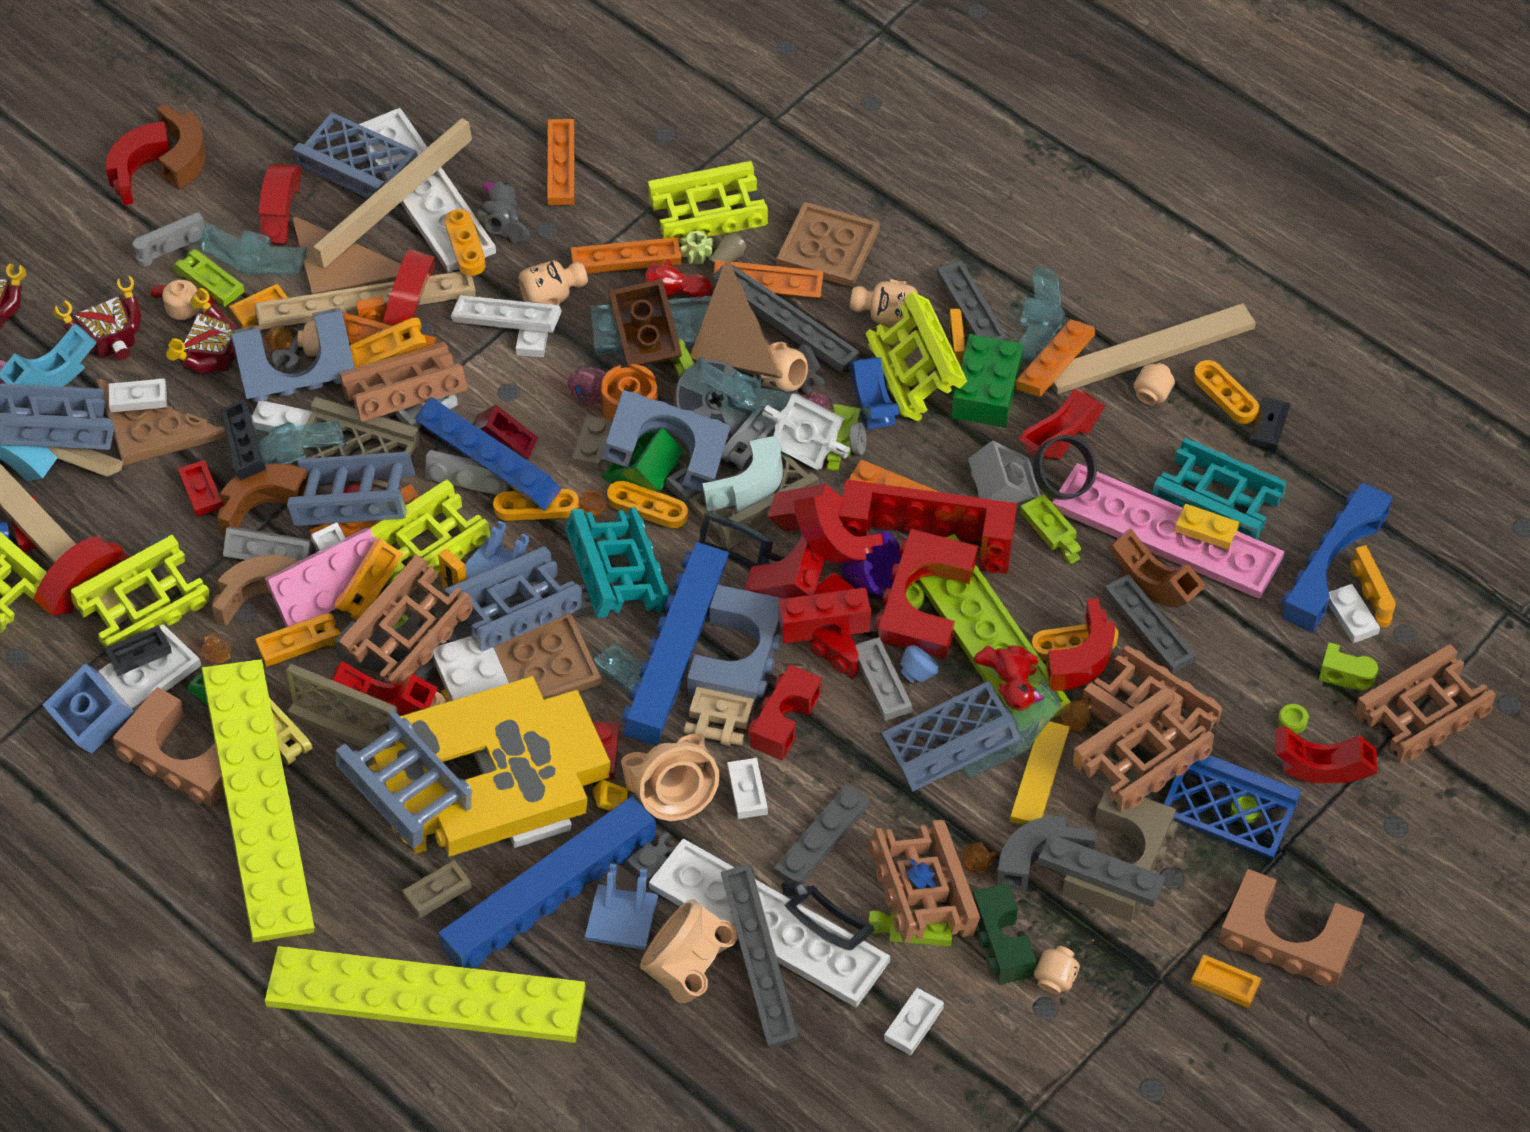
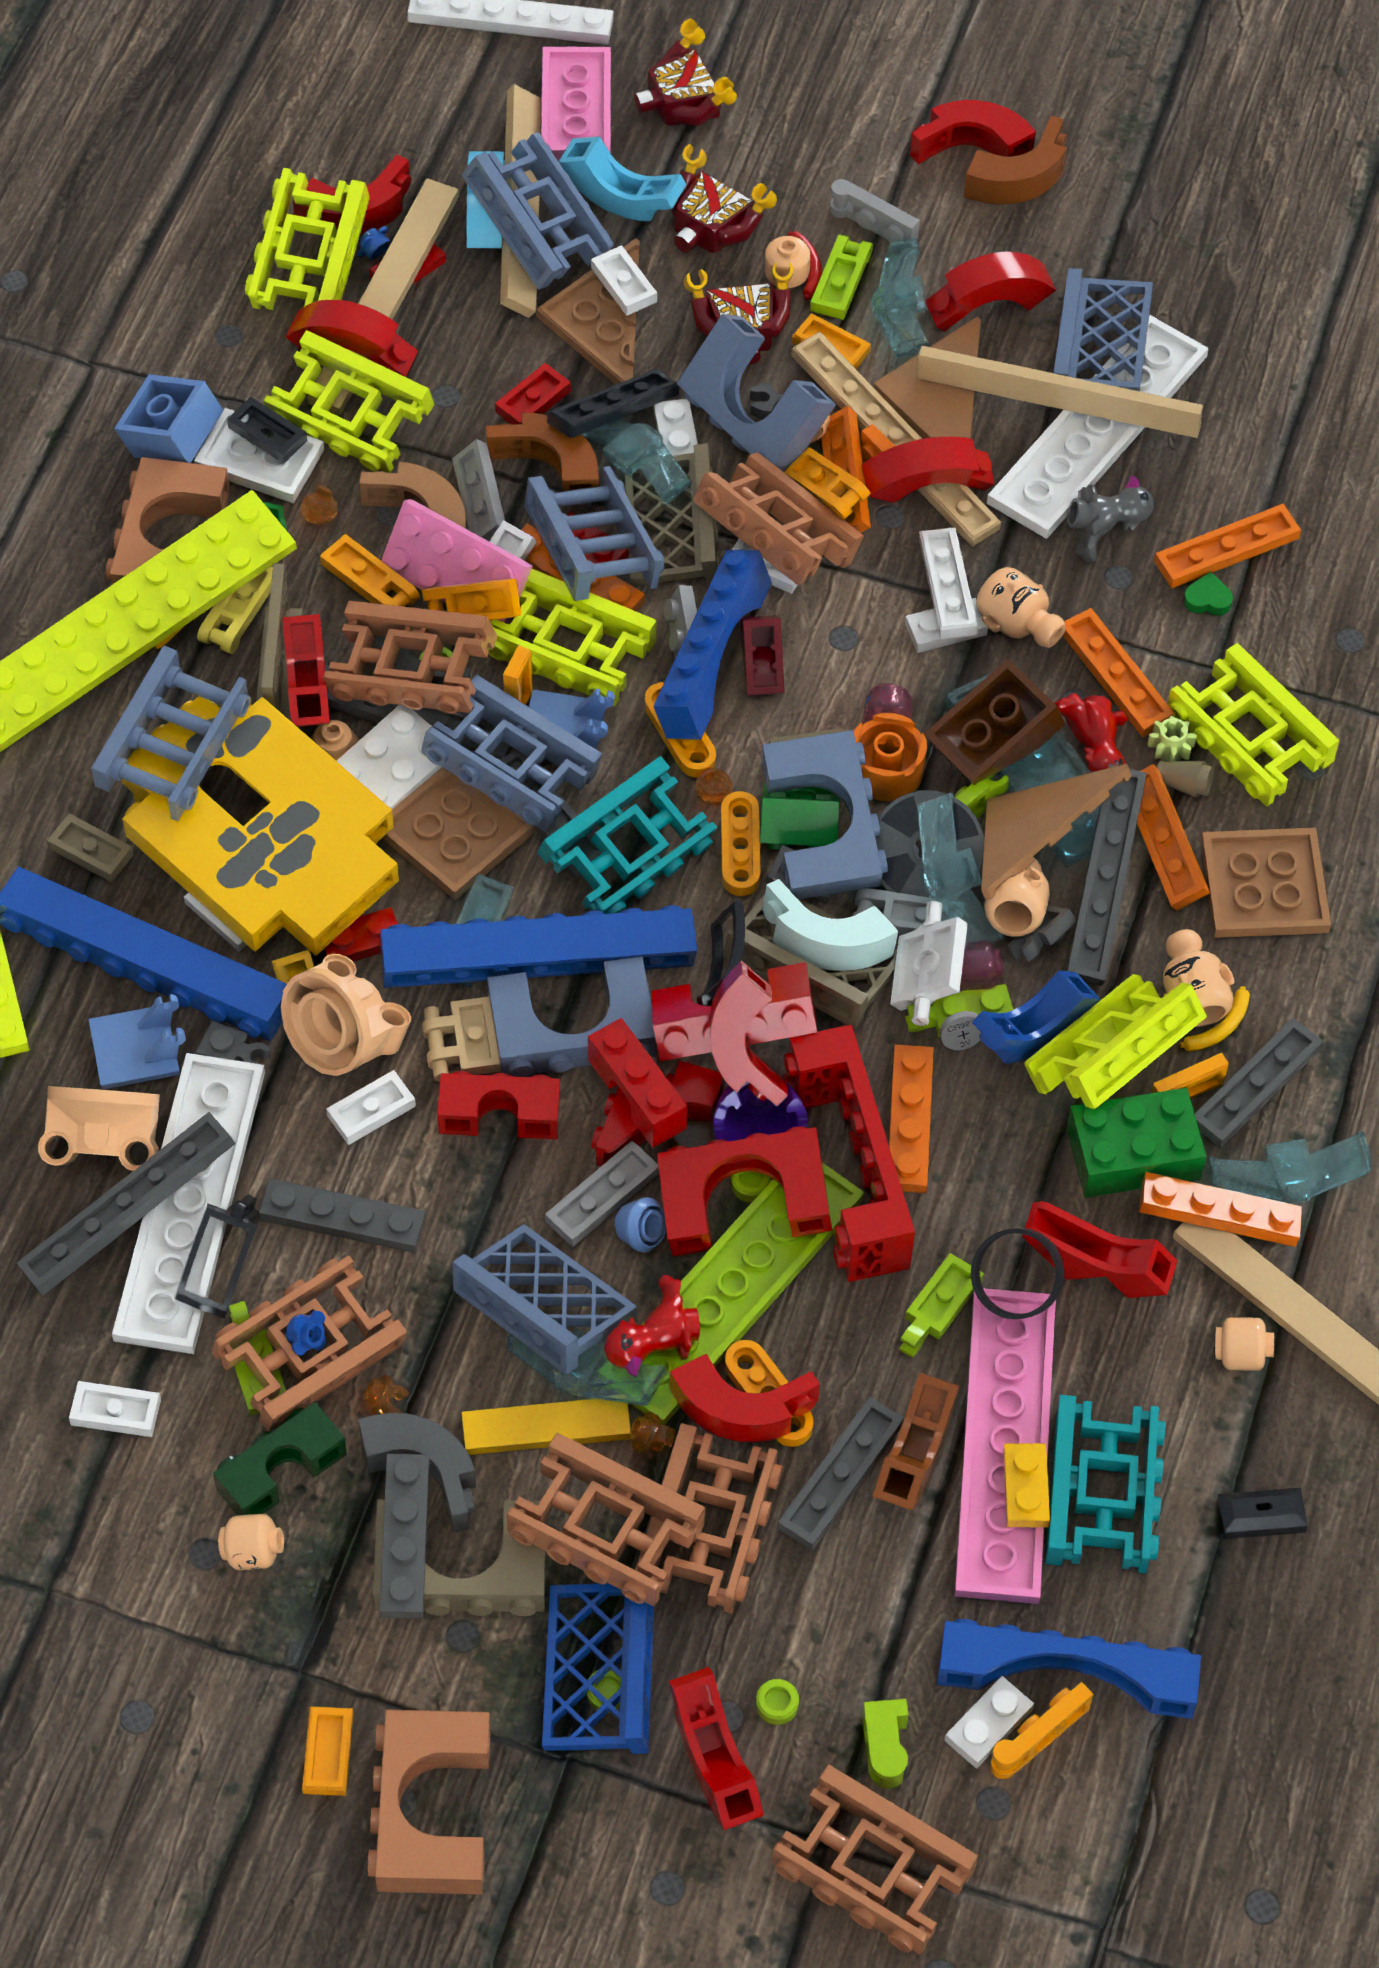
camera: 65 degrees right, 5 degrees up
(279, 338) = (783, 375): clear orange plate -> none
(459, 227) = (1025, 505): light orange plate -> none
(592, 188) = (1209, 596): none -> green tile
(1003, 475) = (979, 1209): light grey slope -> none
(1223, 384) = (1284, 1424): light orange plate -> none

